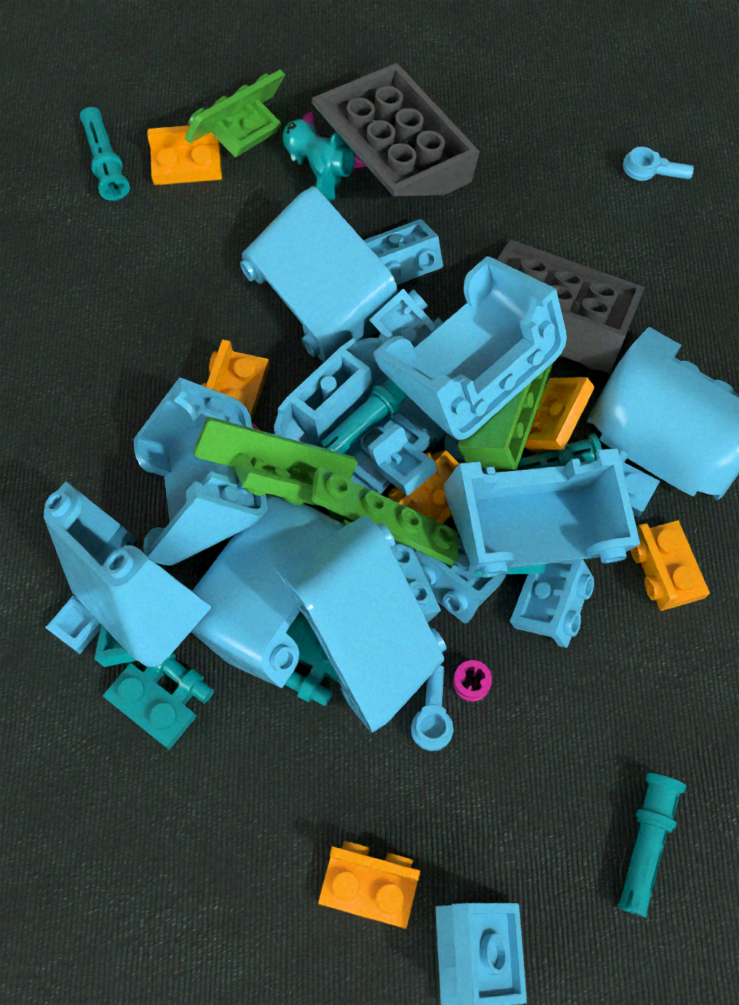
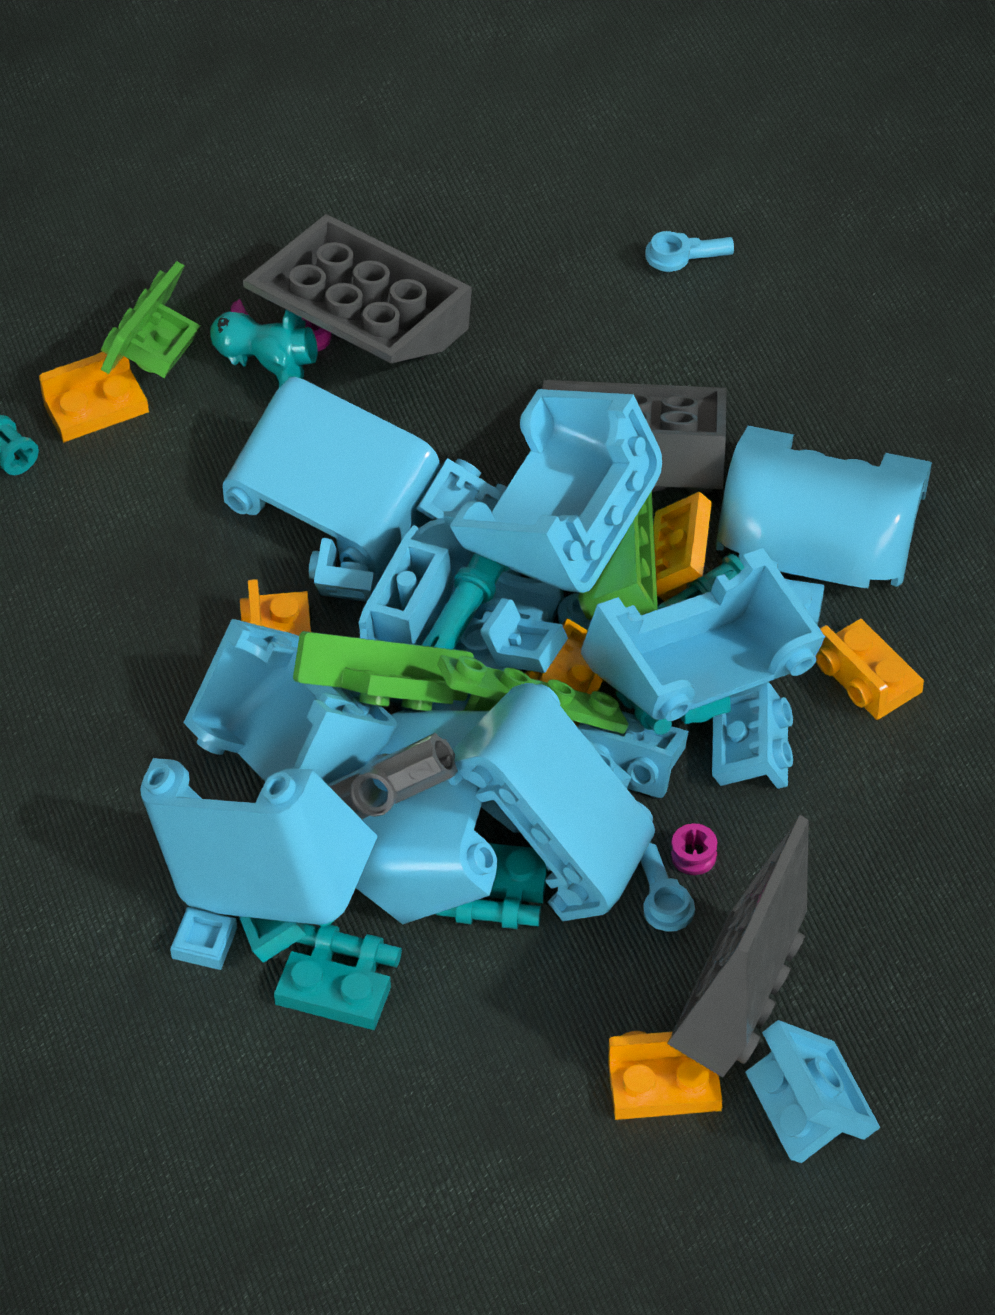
camera: 20 degrees left, 15 degrees down
(226, 569) = (402, 772): none -> dark grey piece
(285, 346) = (347, 582): none -> medium azure bracket
(408, 250) = (434, 417): medium azure bracket -> none
(462, 828) = (748, 960): none -> dark grey slope
(655, 823) = (950, 916): teal pin -> none

